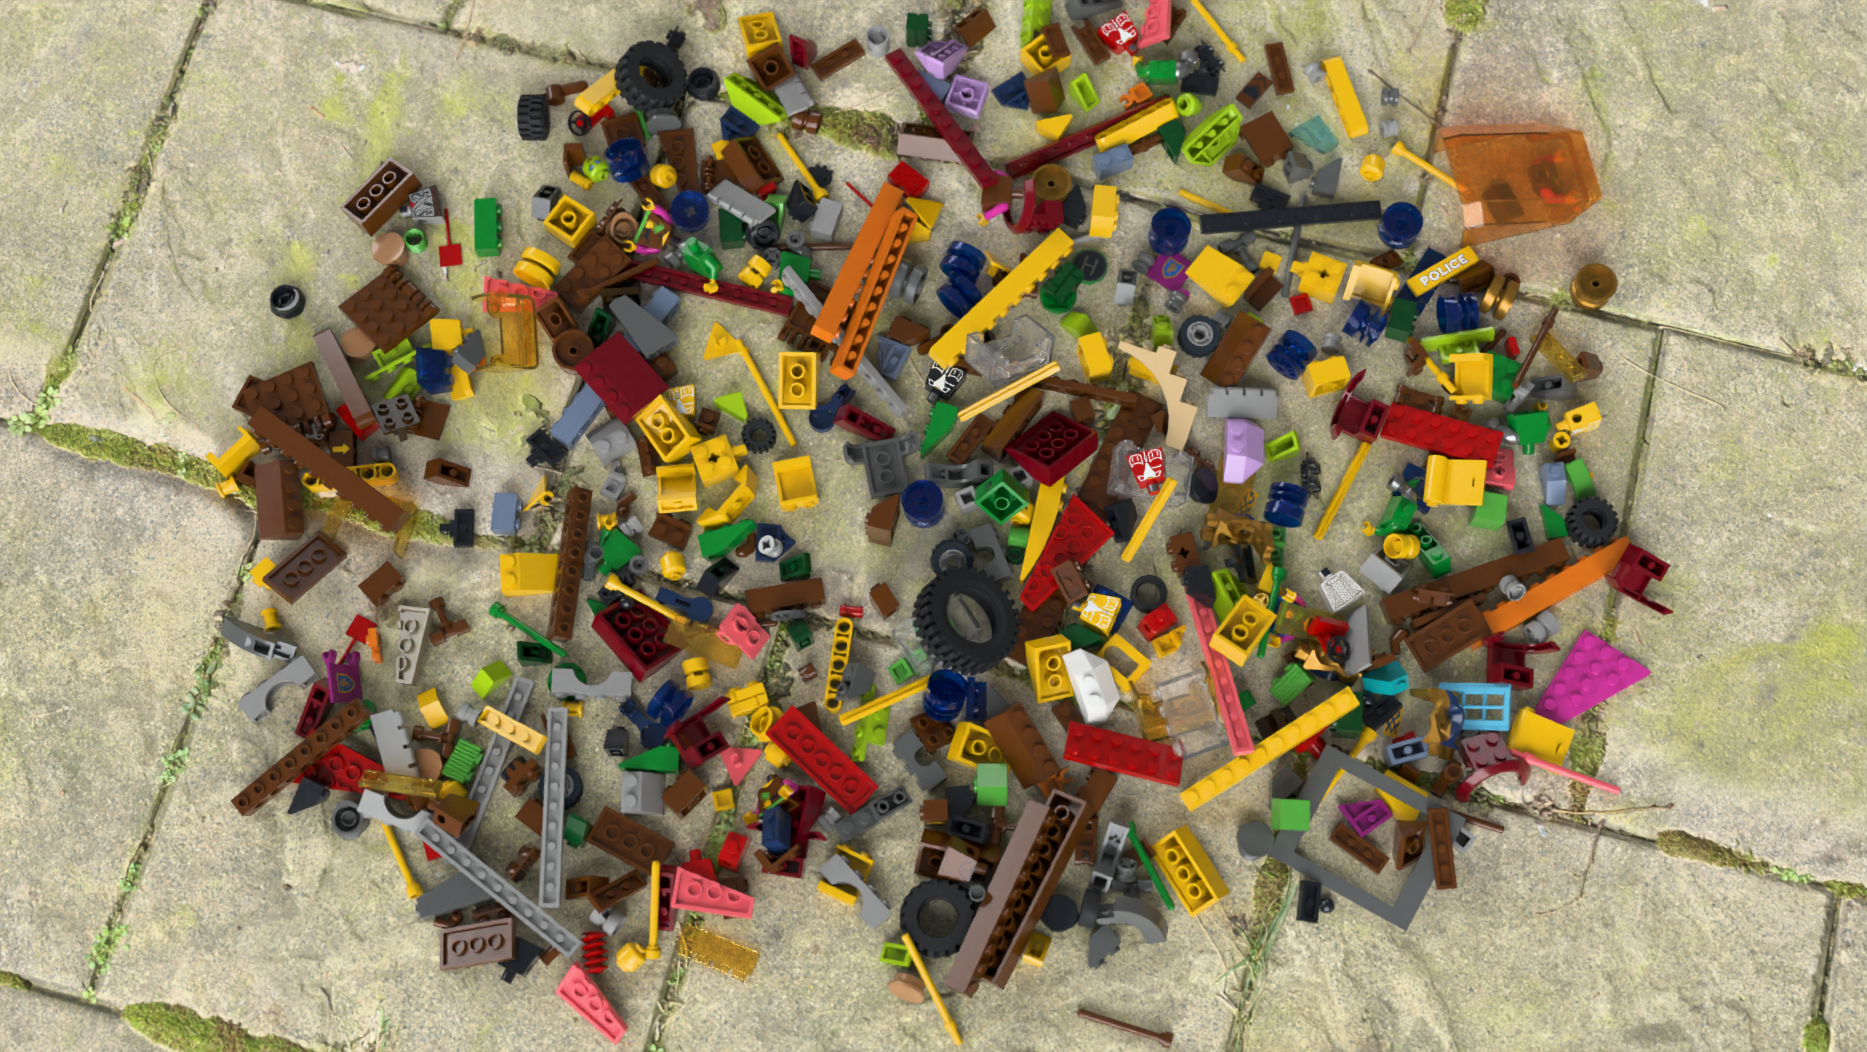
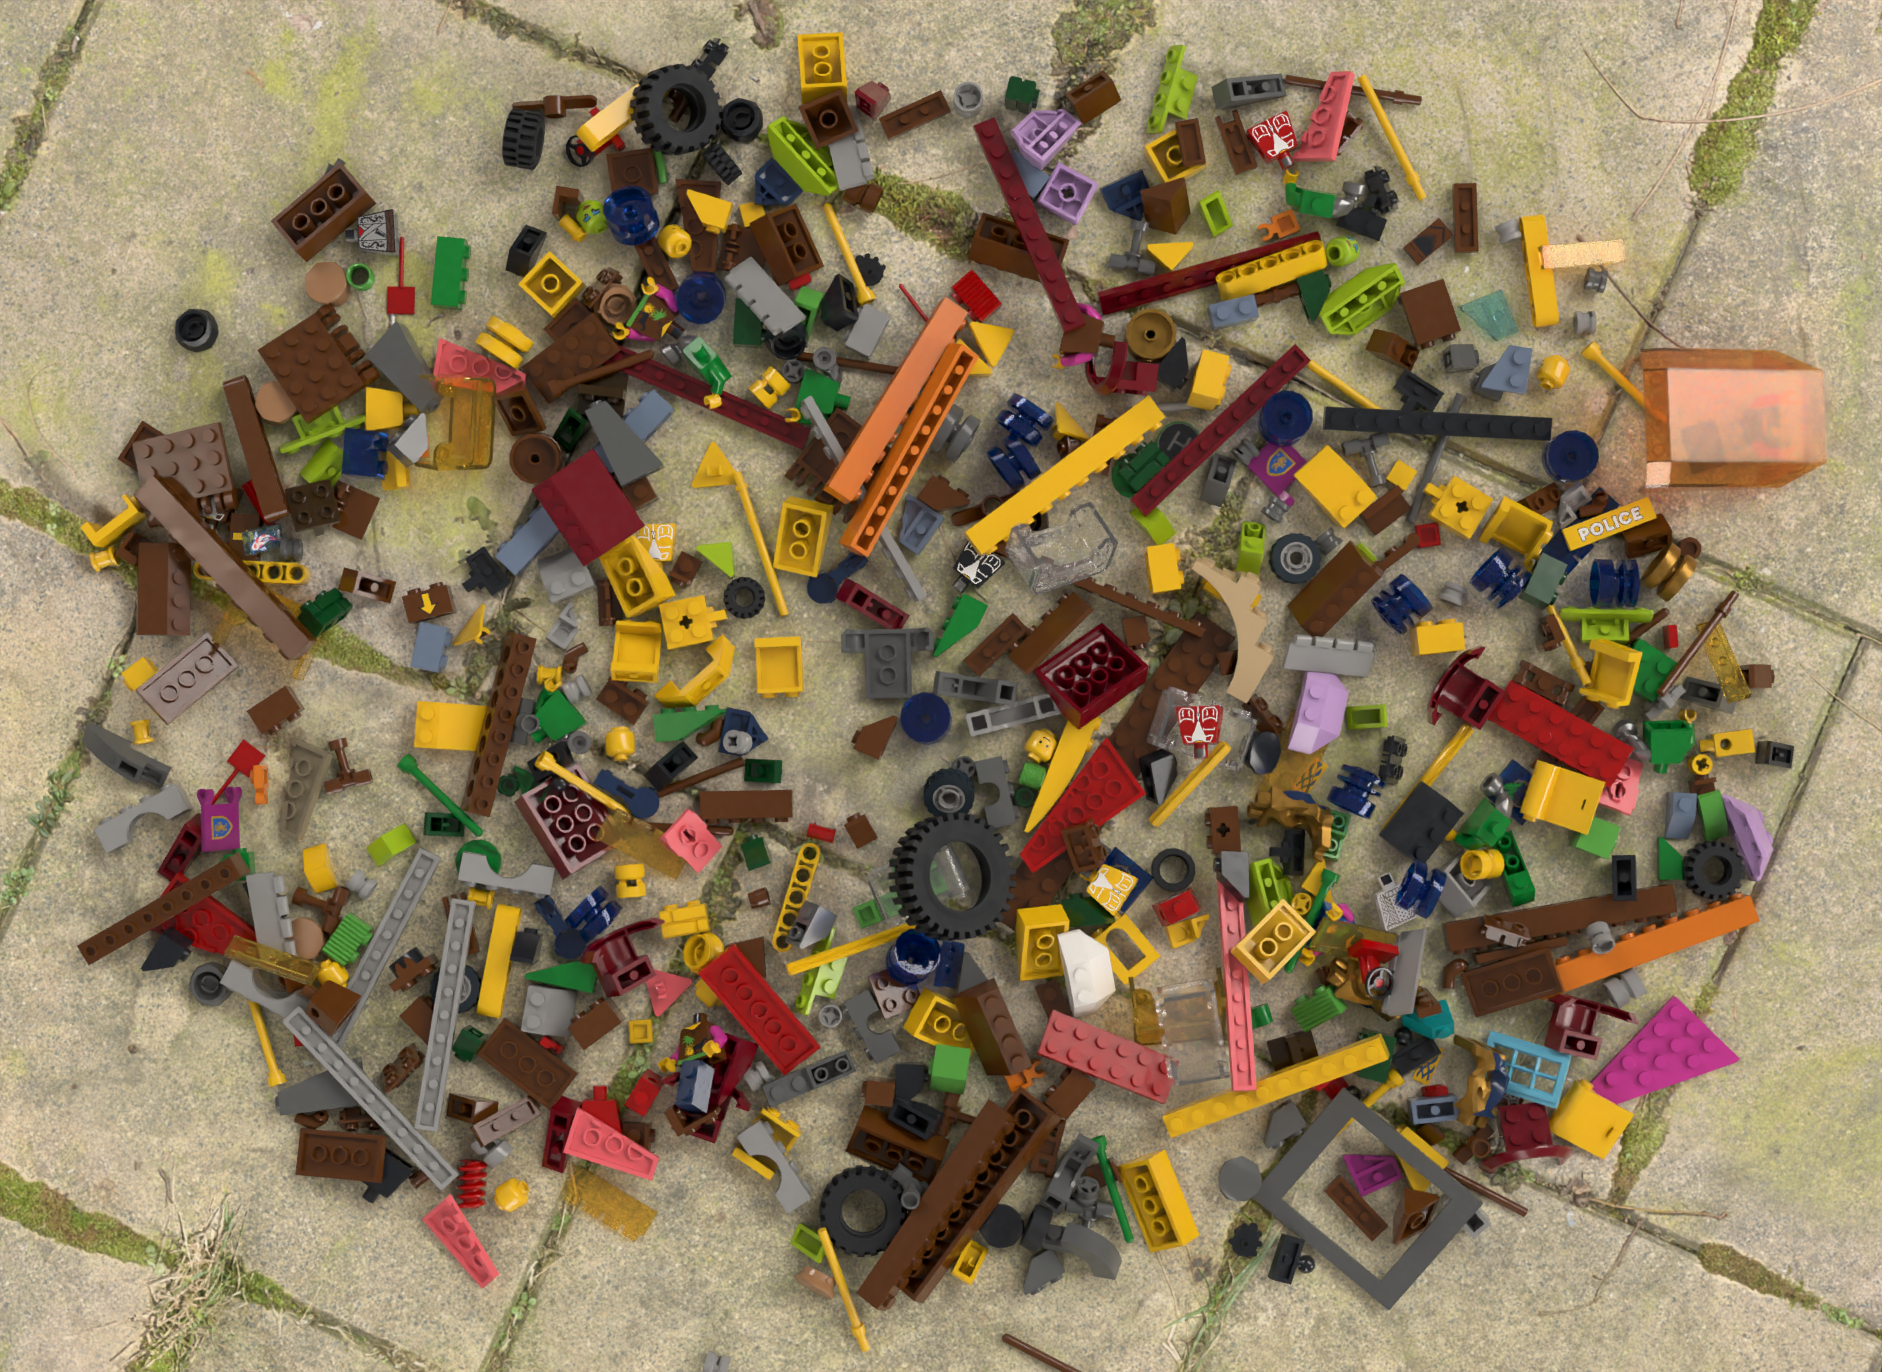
camera: 10 degrees right, 15 degrees up
(356, 448) = (262, 539): none -> tile
(415, 496) = (324, 612): none -> dark green brick
(455, 296) = (402, 363): none -> dark grey slope
(461, 528) = (376, 656): black hinge -> none
(500, 479) = (429, 603): none -> reddish brown brick
(512, 730) = (407, 915): yellow tile -> none
(579, 614) = (503, 789): none -> dark green plate
(594, 760) = (498, 961): none -> yellow beam
(648, 822) = (548, 1042): none -> red tile
(653, 950) = (537, 1191): yellow piece -> none
(662, 120) = (683, 167): dark grey hat -> none
(689, 147) = (712, 211): none -> yellow slope
(692, 113) = (722, 163): none -> black tyre
(744, 583) = (700, 777): none -> reddish brown bar
(788, 614) = (746, 829): dark grey wheel -> none
(880, 757) = (830, 1019): none -> light grey wheel
(960, 861) = (898, 1156): torso -> none
(1001, 496) = (1019, 730): green brick -> none
(1008, 391) = (1051, 596): yellow axle -> none
(1026, 135) = (1133, 259): none -> dark grey bar
(1118, 250) = (1219, 430): none -> dark red plate
(1271, 892) = (1246, 1240): none -> black piece
(1278, 320) = (1394, 553): none -> reddish brown plate
(1290, 814) = (1284, 1163): bright green head -> none
(1339, 168) = (1510, 371): none -> sand blue wing
(1344, 523) = (1421, 823): none -> black slope
(1359, 568) = (1420, 889): none -> clear blue wheel
(1375, 78) = (1582, 254): none -> clear yellow tile
(1409, 260) = (1569, 503): none -> light grey slope
(1430, 259) = (1596, 507): none -> reddish brown arm
(1441, 848) = (1448, 1230): reddish brown tile -> none
(1532, 760) = (1574, 1143): coral bar -> none
(1593, 286) = (1790, 563): pearl gold wheel -> none
(1611, 487) = (1748, 835): none -> lavender wedge
(1617, 425) = (1774, 754): none -> black slope
(1635, 572) = (1747, 944): dark red piece -> none

